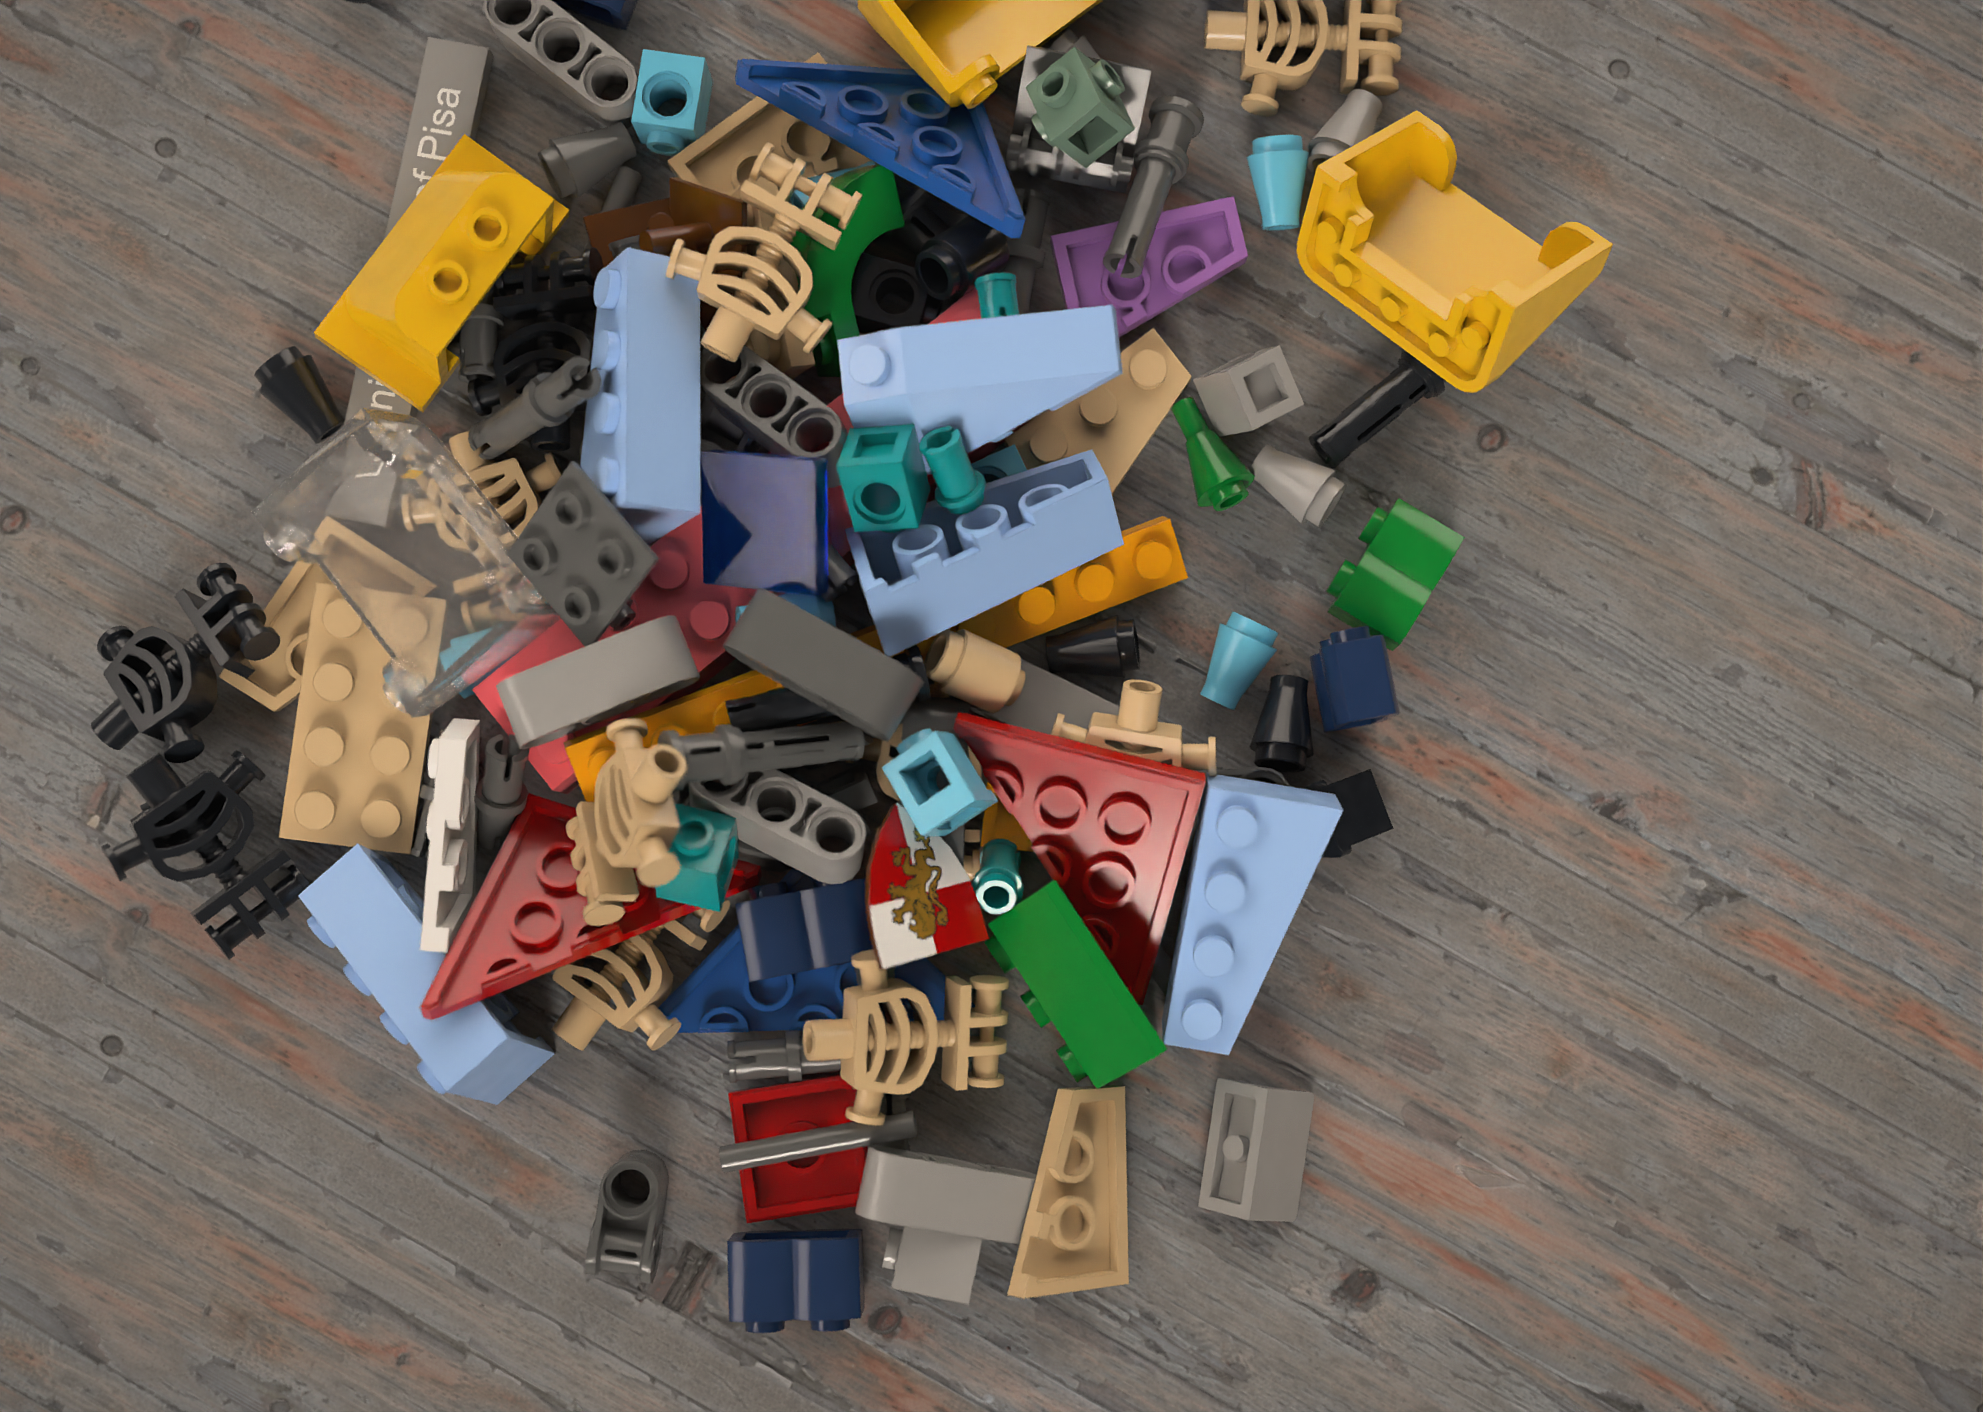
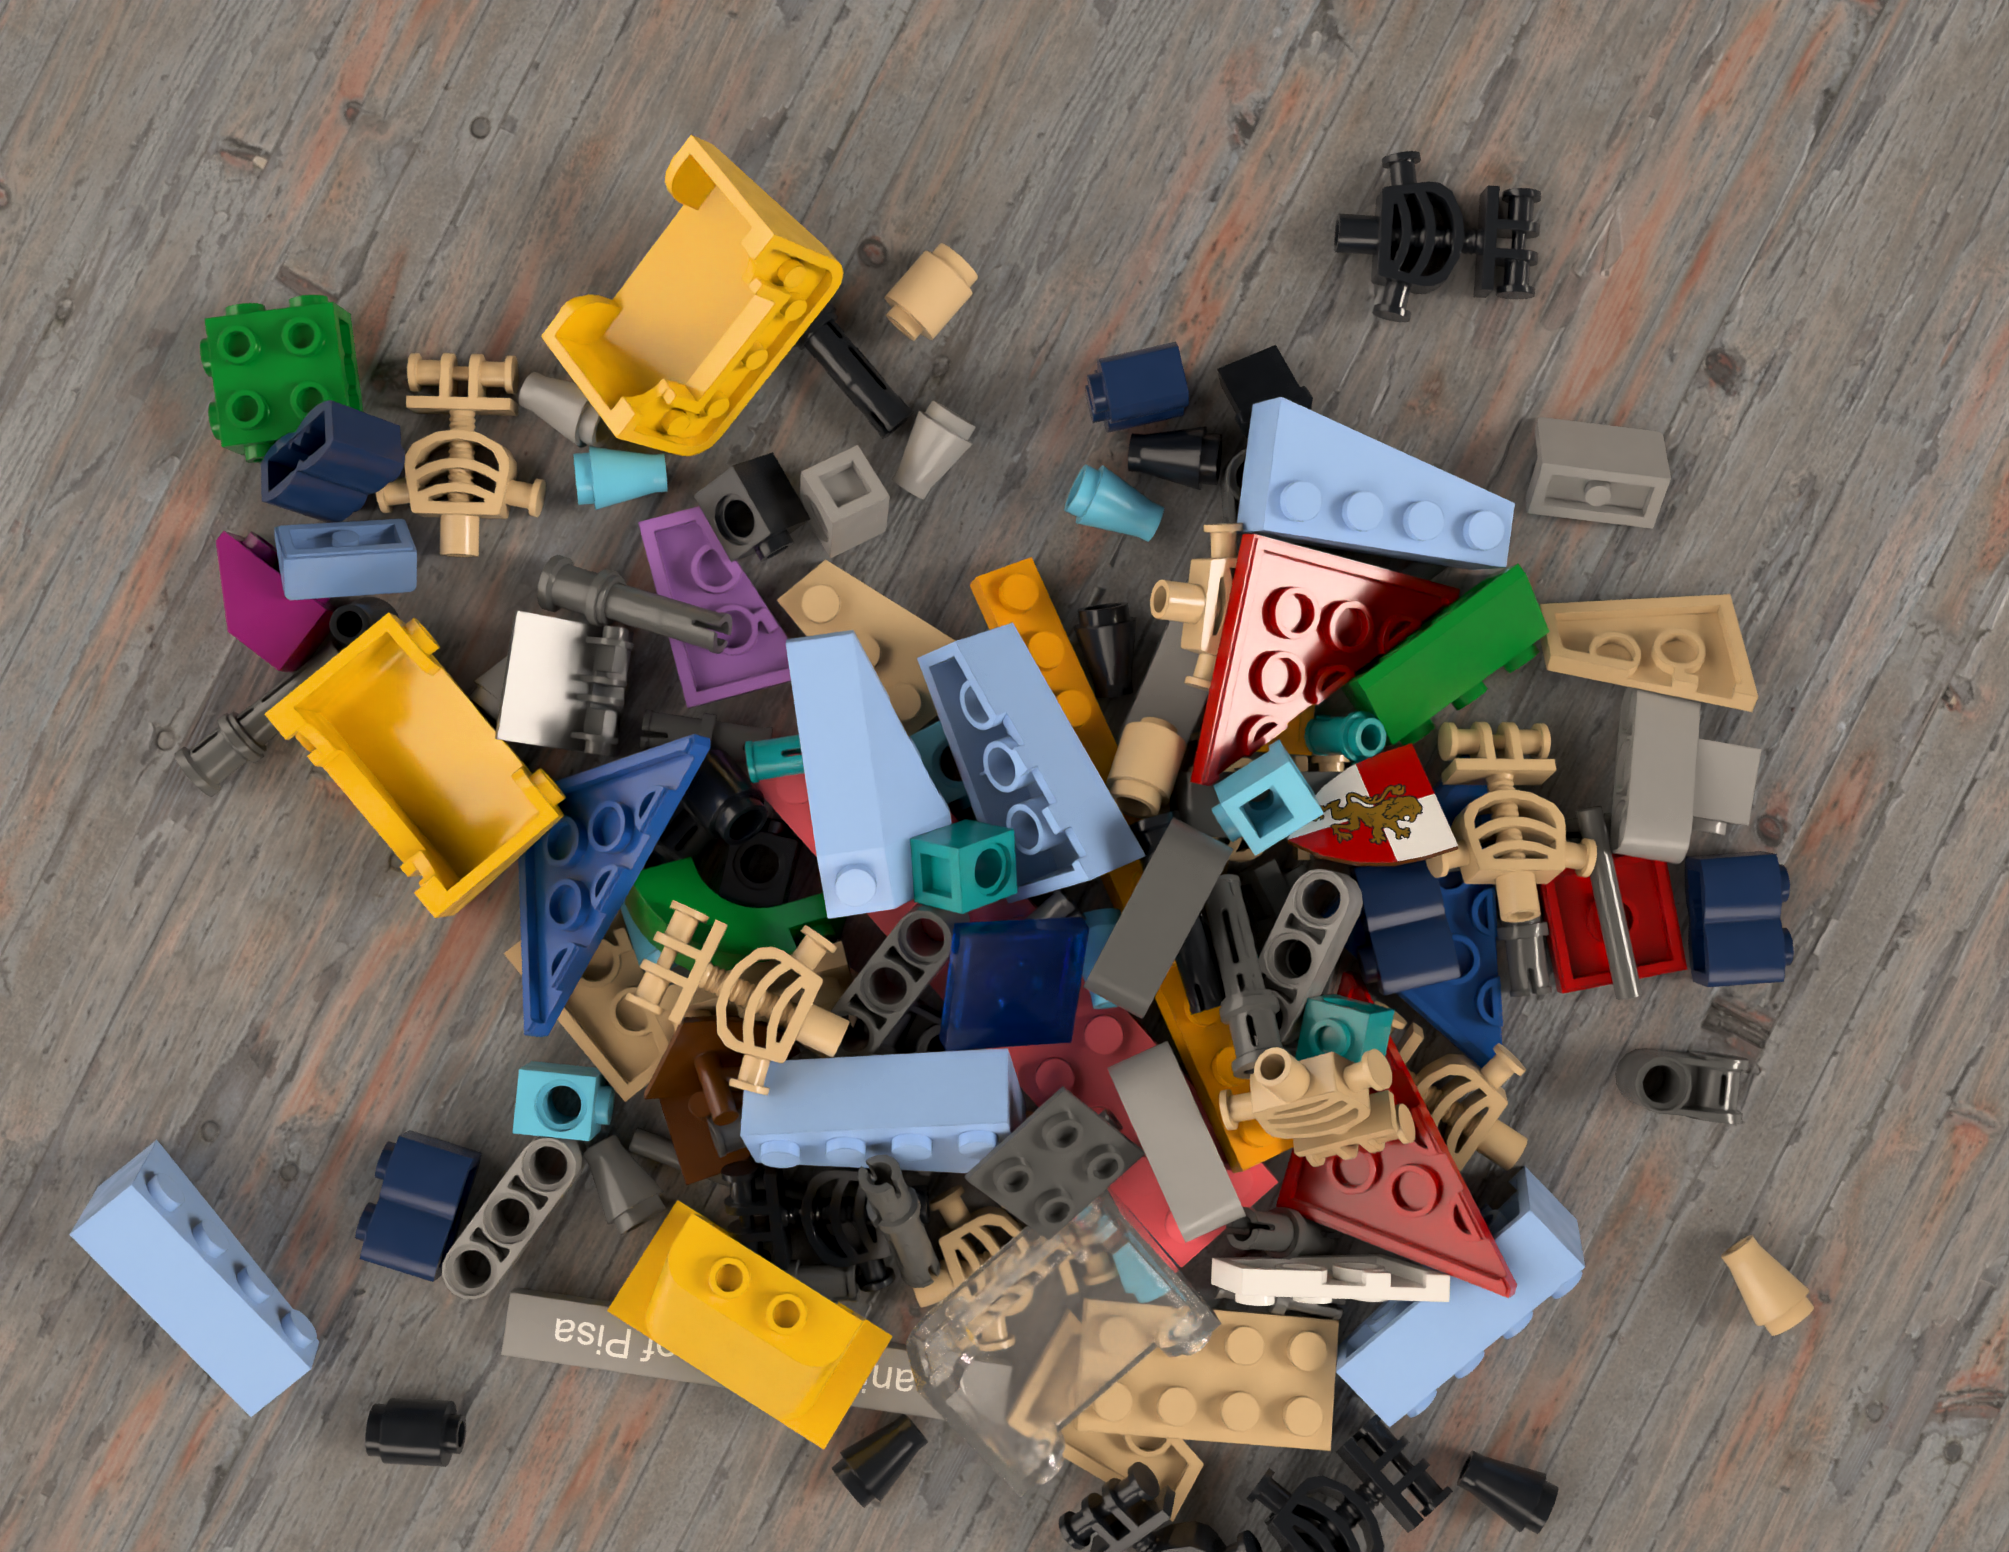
camera: 90 degrees left, 5 degrees up
(226, 1021) = (1509, 1490): none -> black cone
(416, 1296) = (1767, 1287): none -> tan cone
(958, 484) = (964, 791): teal pin -> none
(1070, 98) = (563, 682): sand green brick -> none
(1216, 471) = (921, 532): green cone -> none
(1244, 305) = (753, 508): none -> black brick
(1395, 572) = (1021, 349): green brick -> none
(1451, 487) = (930, 293): none -> tan brick
(1501, 934) = (1378, 235): none -> black piece

